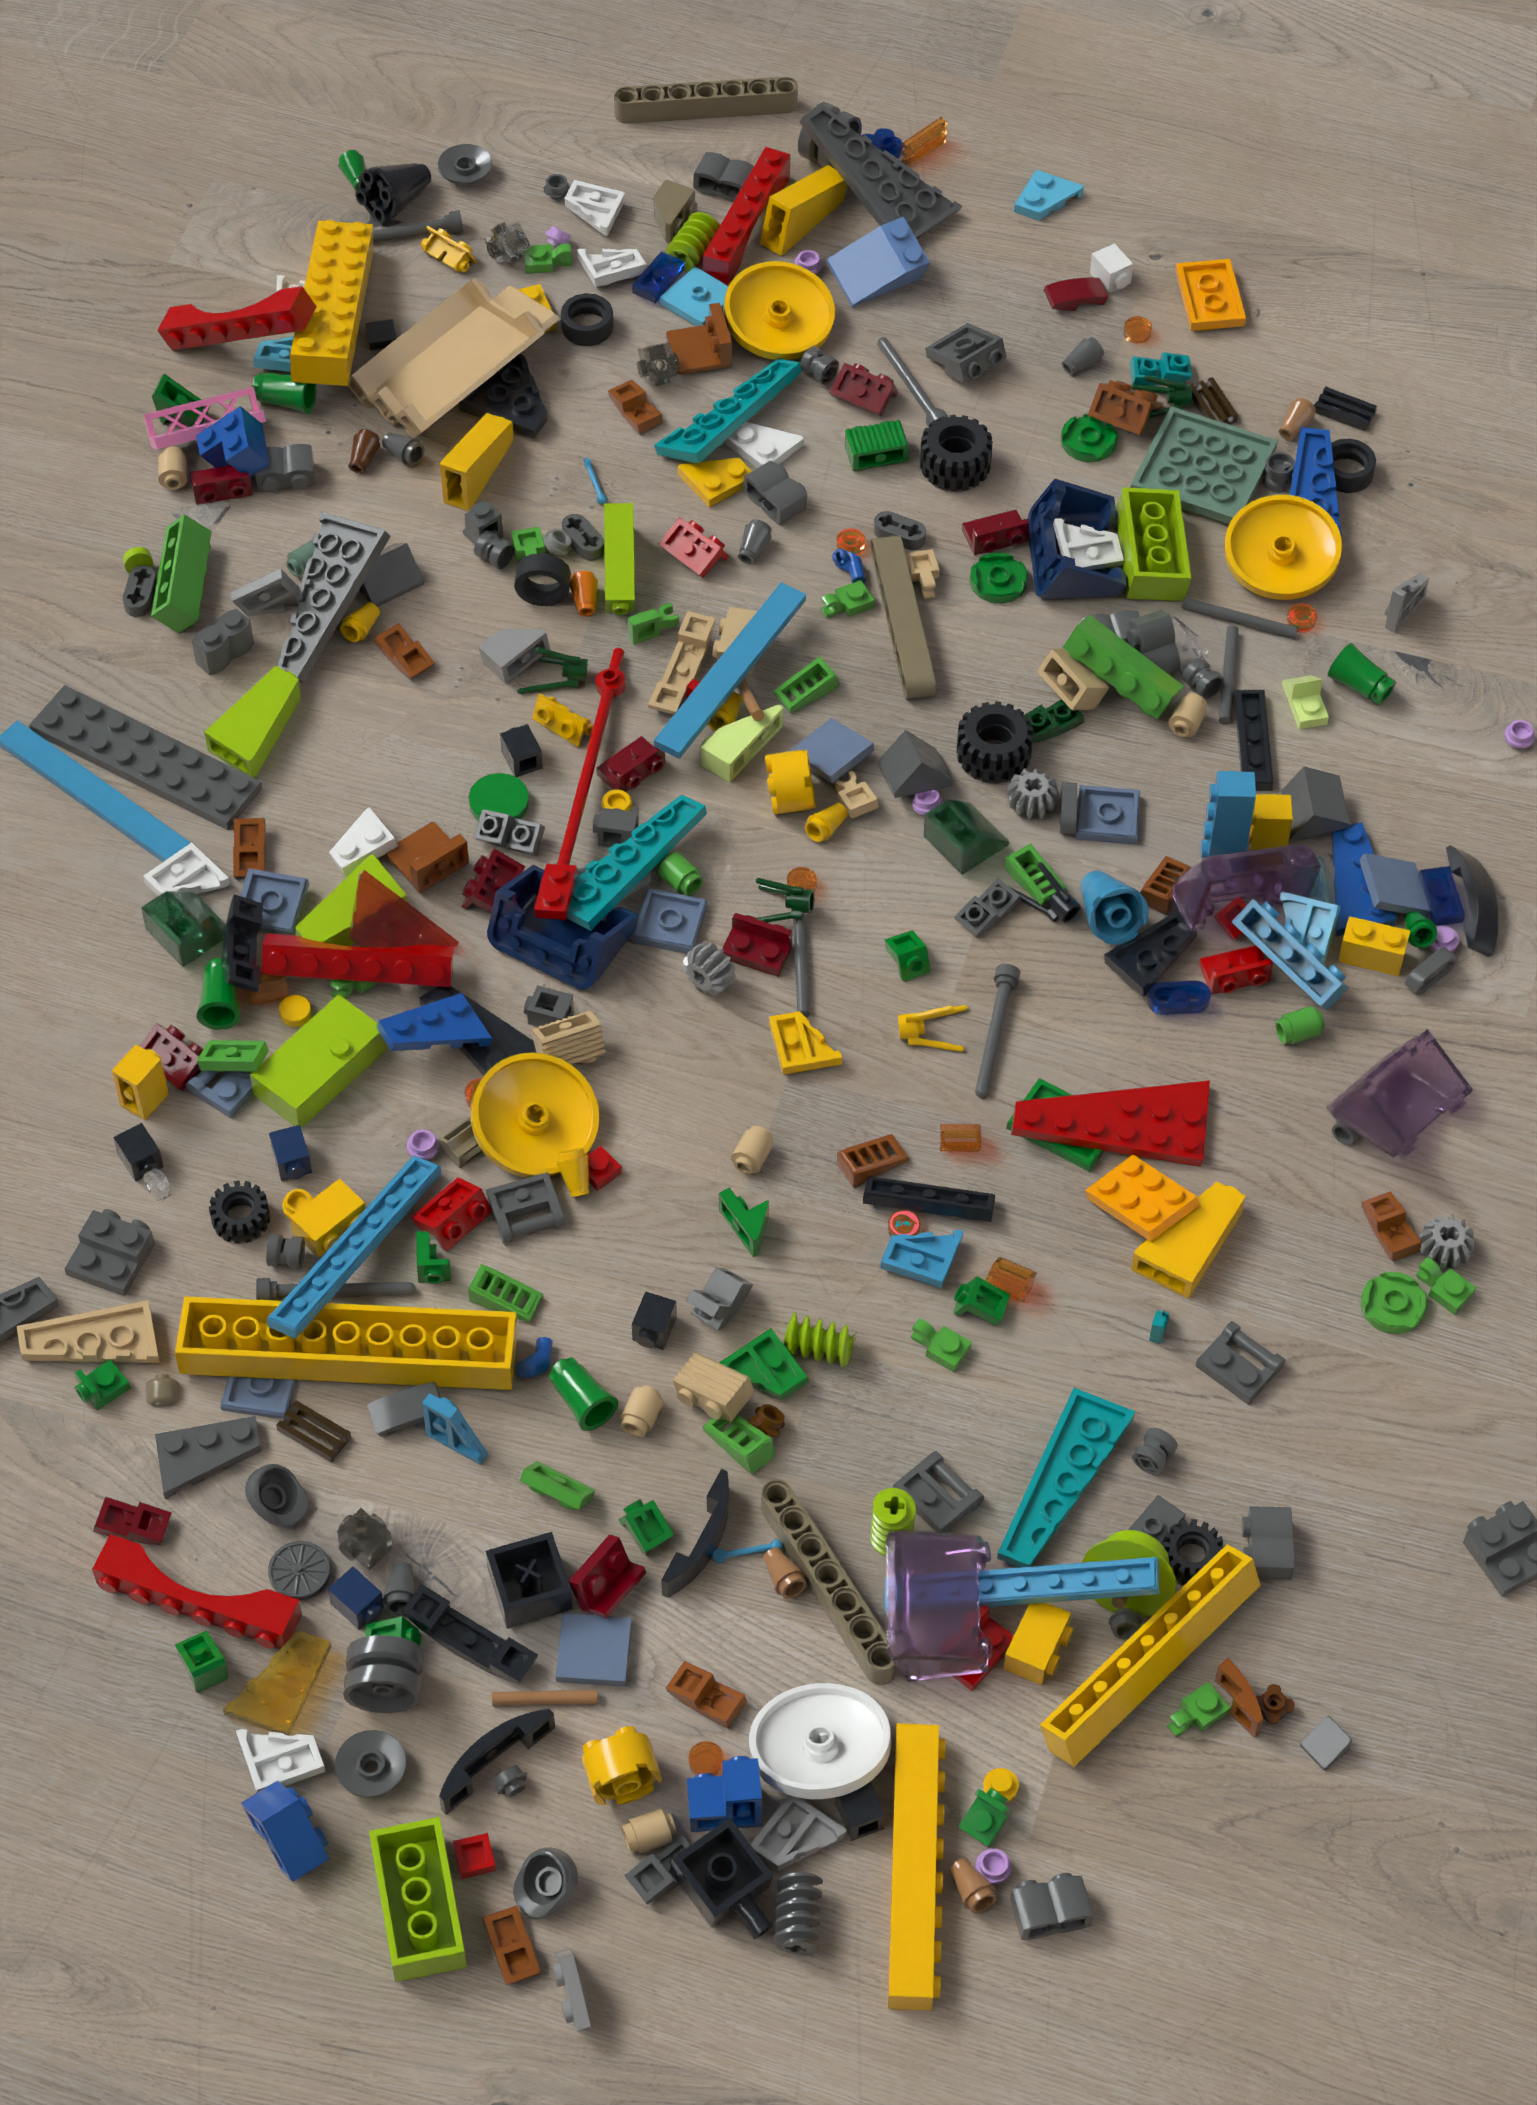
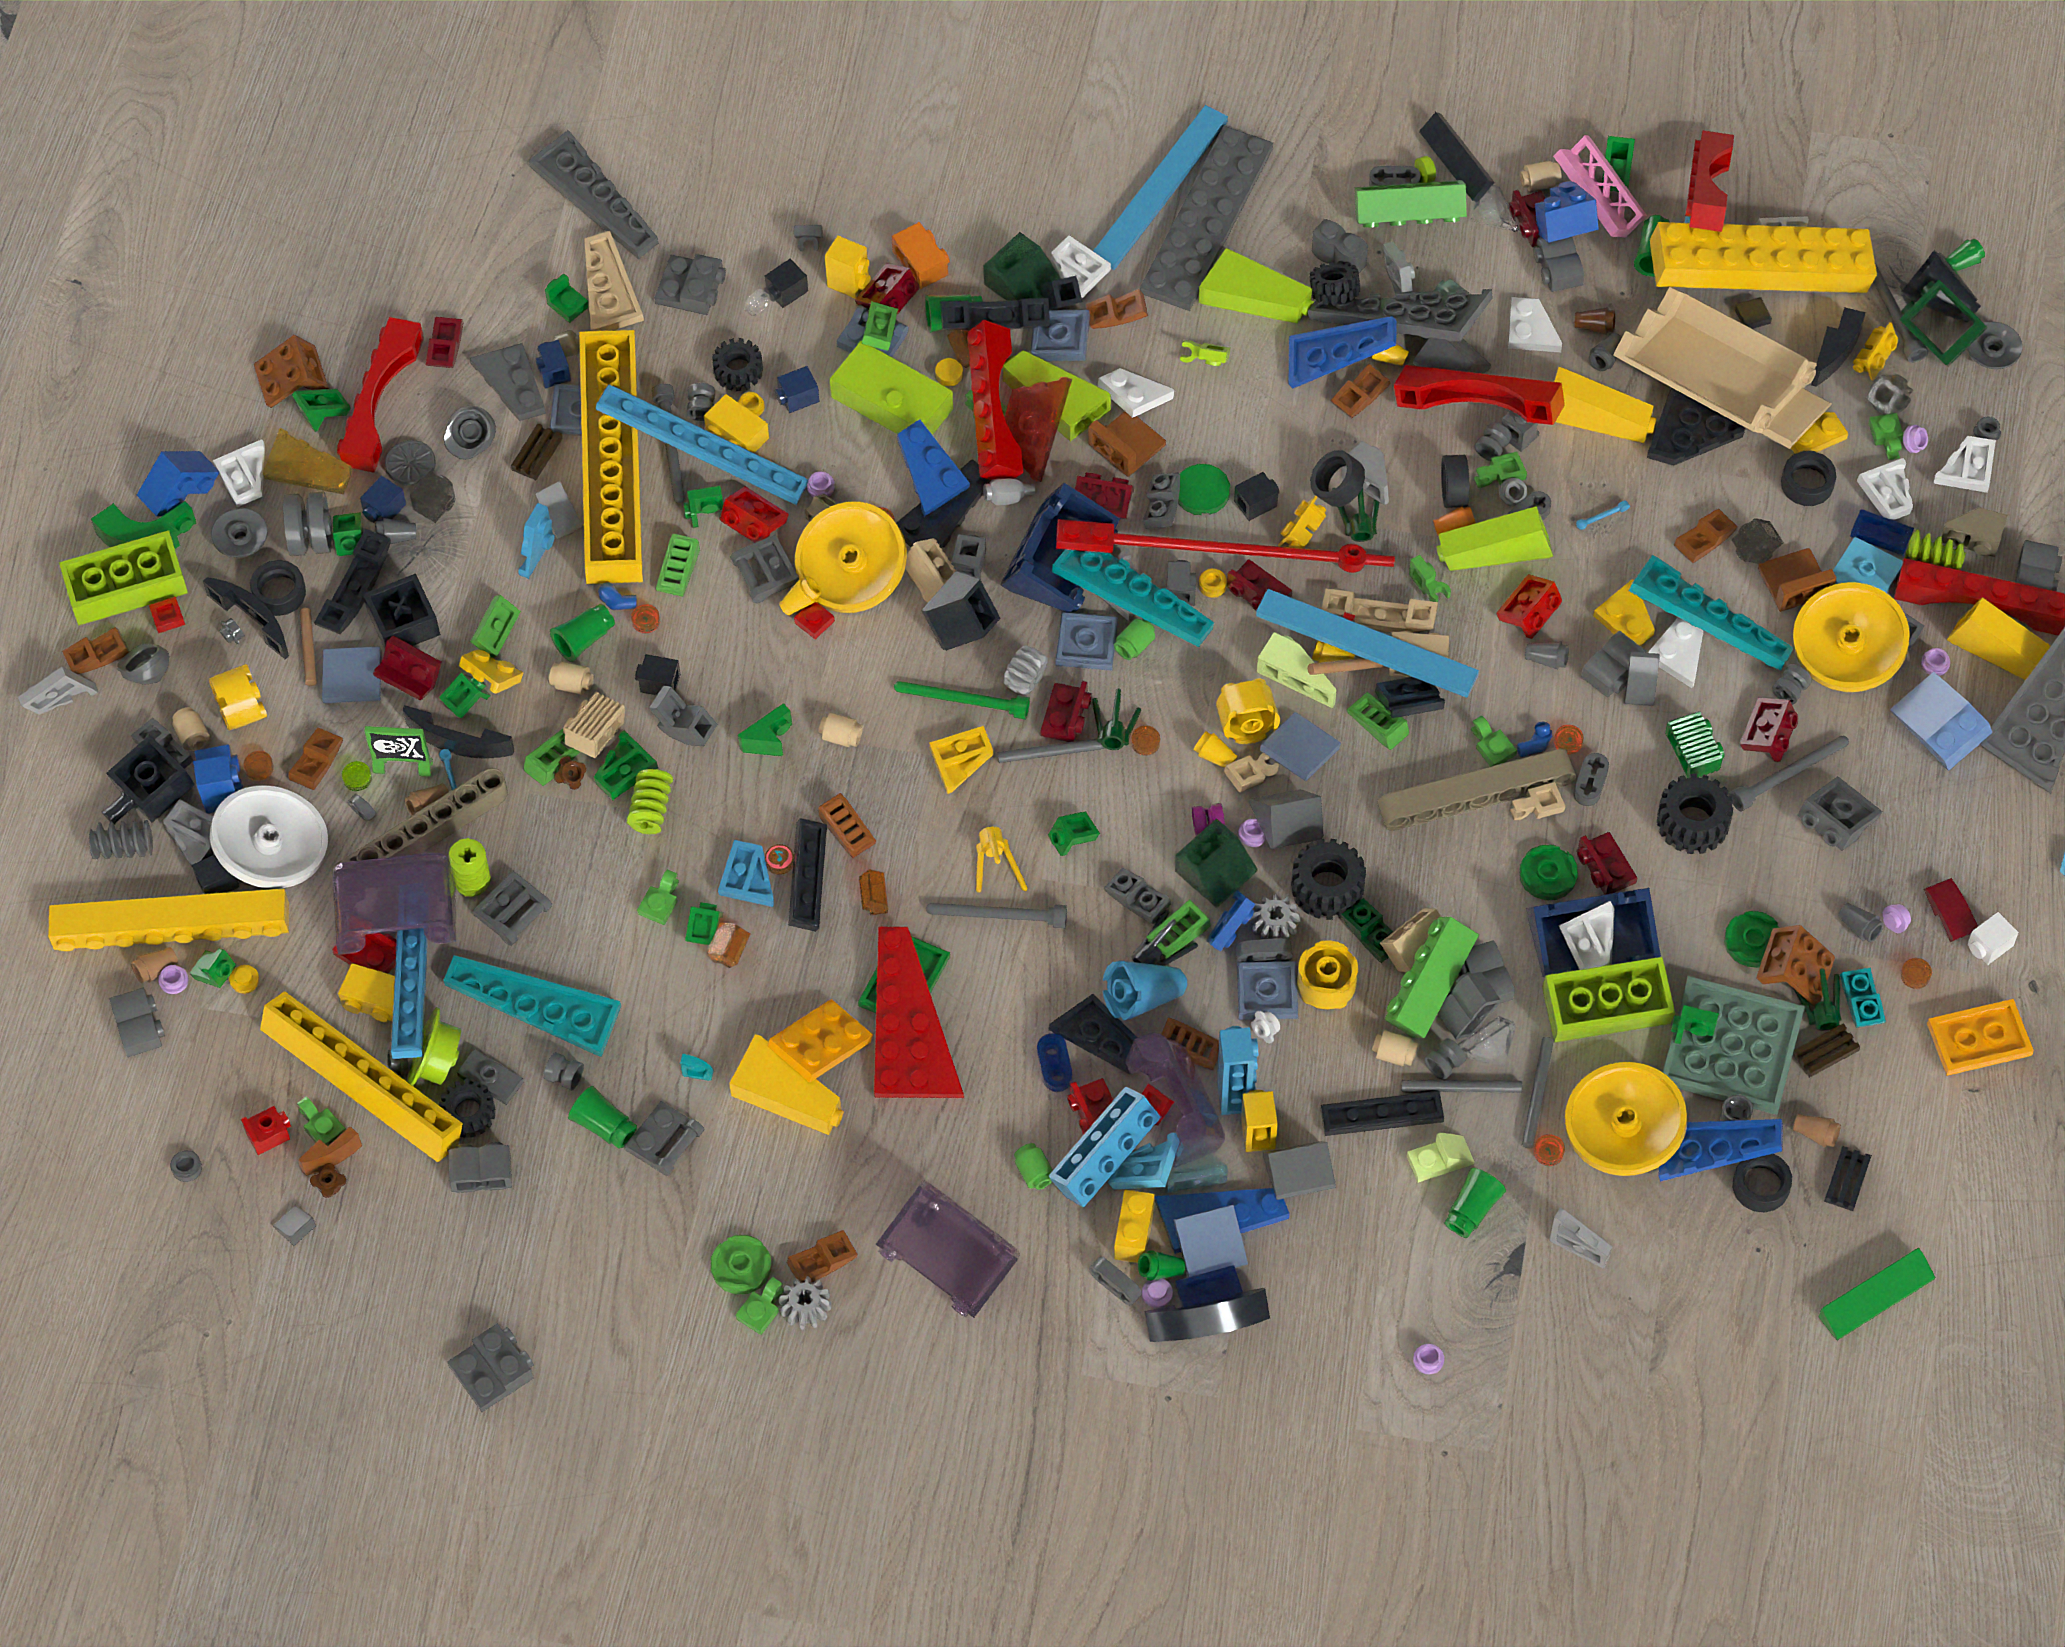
camera: 85 degrees right, 5 degrees up
(72, 1124) = (808, 232): none -> dark grey tile
(128, 530) = (1456, 156): none -> black tile
(131, 1017) = (919, 252): none -> orange brick
(138, 1700) = (289, 368): none -> dark orange bracket
(194, 1400) = (552, 364): none -> dark blue brick
(221, 884) = (1062, 292): none -> black brick
(261, 640) = (1335, 283): none -> black tyre
(329, 768) = (1212, 354): none -> lime plate
(348, 1899) = (118, 529): none -> green arch
(356, 503) = (1531, 327): none -> white wing
(356, 661) = (1334, 348): none -> blue wing
(434, 271) = (1838, 344): none -> black slope
(455, 1699) = (273, 570): none -> black tyre
(461, 173) = (1962, 343): none -> dark green window
(467, 970) = (1006, 491): none -> light grey plant
(474, 490) = (1428, 387): none -> red arch
(509, 681) = (1350, 486): none -> black tyre
(568, 1334) = (645, 618): none -> clear orange tile
(621, 1491) = (499, 673): none -> yellow wing
(627, 1014) = (960, 611): none -> black slope
(732, 1571) = (398, 745): none -> flag
(735, 1651) = (356, 776): none -> clear neon green tile
(745, 987) = (1016, 706): none -> green piece
(785, 1643) = (361, 807): none -> dark grey tile
(790, 653) = (1409, 696): none -> black plate
(803, 464) = (1642, 678): none -> dark grey slope
(908, 835) = (1199, 816): none -> magenta wheel
(1034, 824) = (1224, 931): none -> blue wing
(1081, 329) = (1896, 918): none -> lavender plate
(1105, 754) = (1327, 975): none -> yellow brick
(1153, 816) = (1265, 1026): none -> white plate
(1189, 482) = (1695, 1020): none -> green bracket
(1205, 1776) = (267, 1129): none -> red brick
(1217, 1415) = (602, 1118): none -> green plant
(1242, 1861) = (186, 1166): none -> dark grey tile
(1462, 406) = (1877, 1294): none -> green slope

